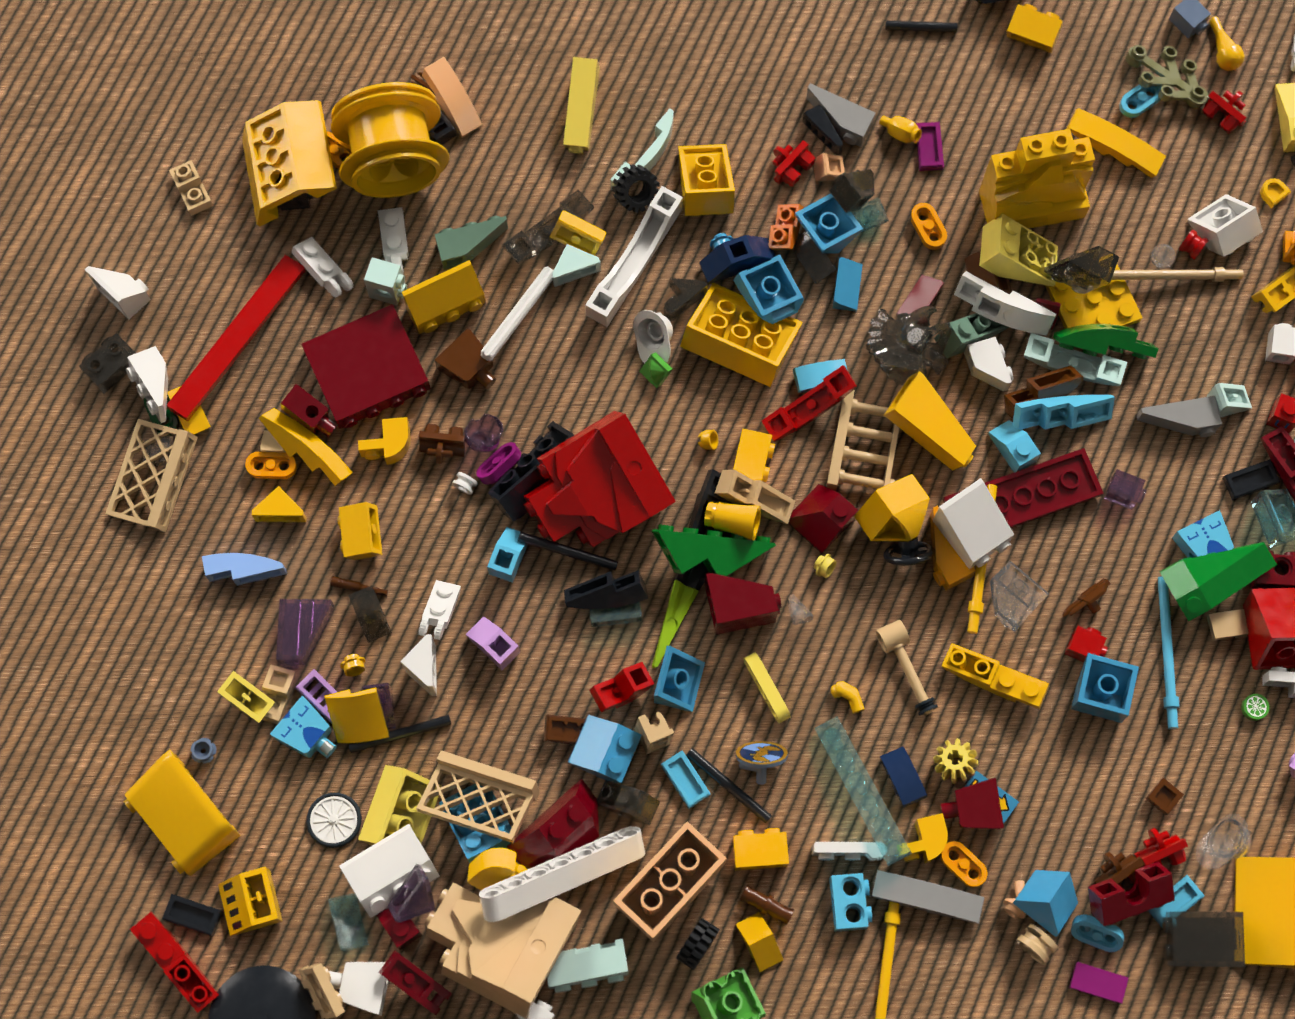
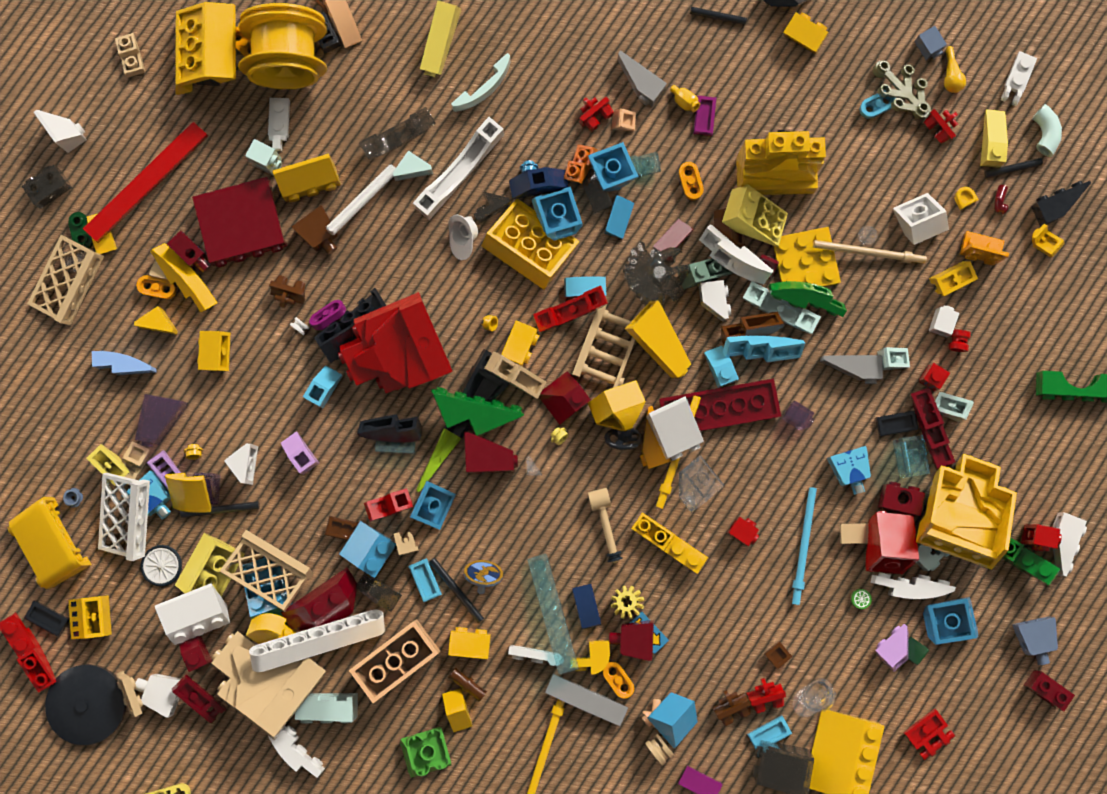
camera: 10 degrees right, 10 degrees up
(151, 376) = (76, 207): white slope -> none
(296, 764) = (136, 518): none -> white fence
(322, 267) = (219, 135): white hinge -> none
(348, 922) = (157, 645): clear light blue slope -> none
(353, 585) = (205, 391): reddish brown piece -> none
(370, 614) = (212, 415): clear smoke slope -> none
(393, 444) = (251, 286): yellow brick -> none
(412, 897) = (204, 639): slope -> none
(439, 608) = (263, 421): white hinge -> none
(467, 242) = (331, 136): sand green slope -> none
(484, 433) = (320, 290): hair -> none
(567, 551) = (367, 392): black bar -> none
(578, 233) = (419, 142): yellow slope -> none
(627, 179) = (465, 105): black tyre -> none
(655, 370) = (459, 261): bright green tile -> none
(697, 944) = (410, 706): black tyre -> none
(706, 180) = (526, 114): yellow slope -> none
(734, 518) = (495, 391): yellow plant -> none
(767, 687) = (497, 522): light yellow beam -> none
(821, 126) = (623, 86): black slope -> none
(842, 902) = (524, 693): medium azure brick -> none
(850, 693) = (559, 536): yellow arm -> none
(853, 189) = (637, 143): clear smoke slope -> none
(1085, 269) = (802, 240): clear smoke slope -> none
(1088, 598) = (752, 495): reddish brown piece -> none
(1092, 932) = (706, 748): medium azure plate -> none
(1105, 688) = (750, 567): dark azure slope -> none
(1117, 142) = (850, 137): yellow slope -> none
(1151, 890) = (751, 725): dark red arch -> none
(1193, 244) = (893, 230): red wheel -> none
(1211, 578) = (846, 499): green wedge -> none

